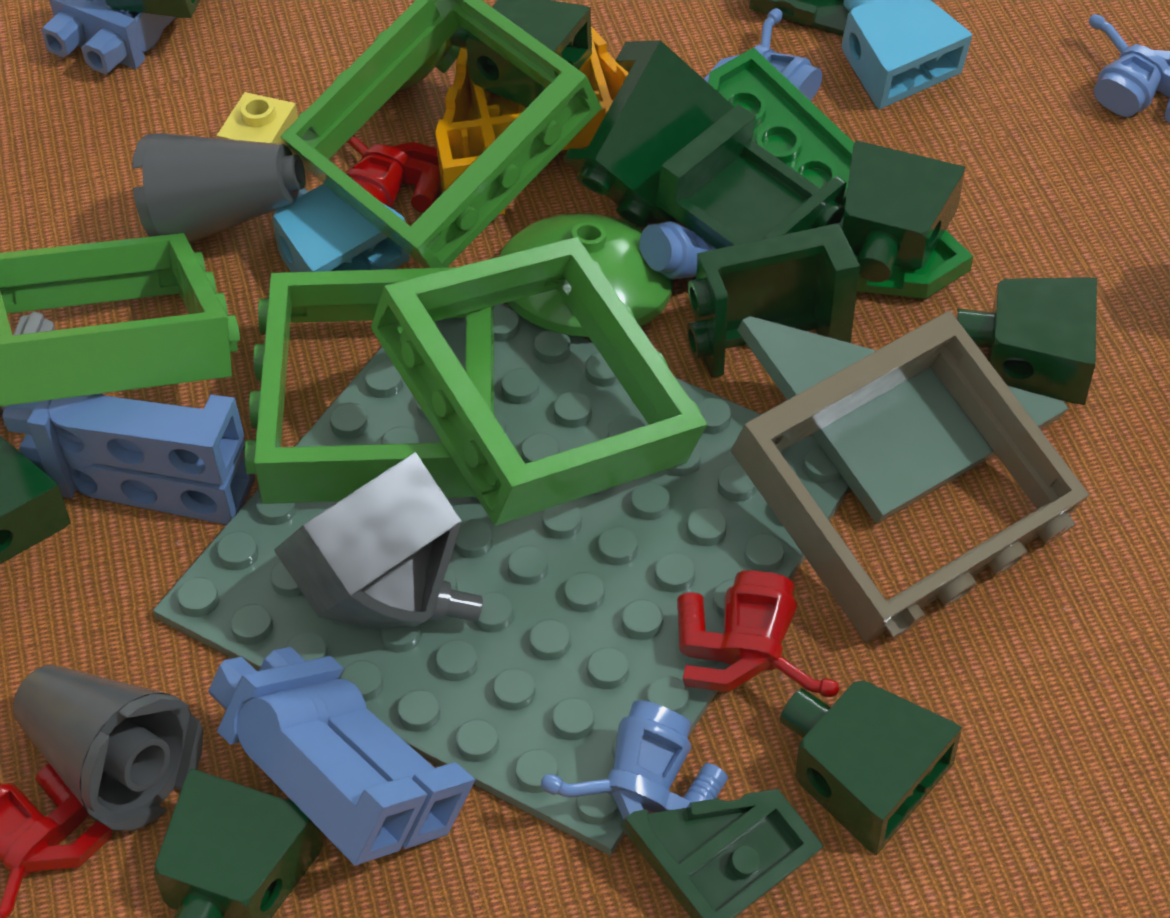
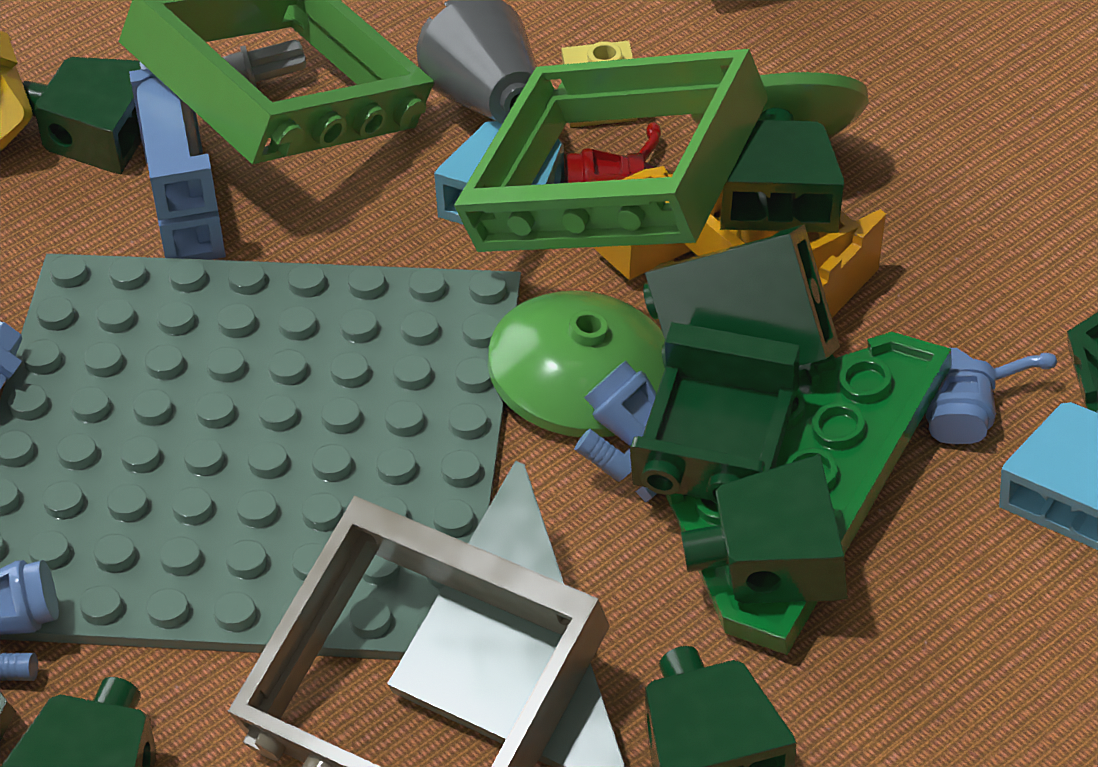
camera: 65 degrees right, 5 degrees down
(338, 471) = (352, 333): bright green window -> none
(382, 554) = (112, 331): piece -> none
(467, 425) = (341, 213): bright green window -> none
(755, 624) = (189, 624): red piece -> none
(786, 279) = (603, 482): dark green panel -> none

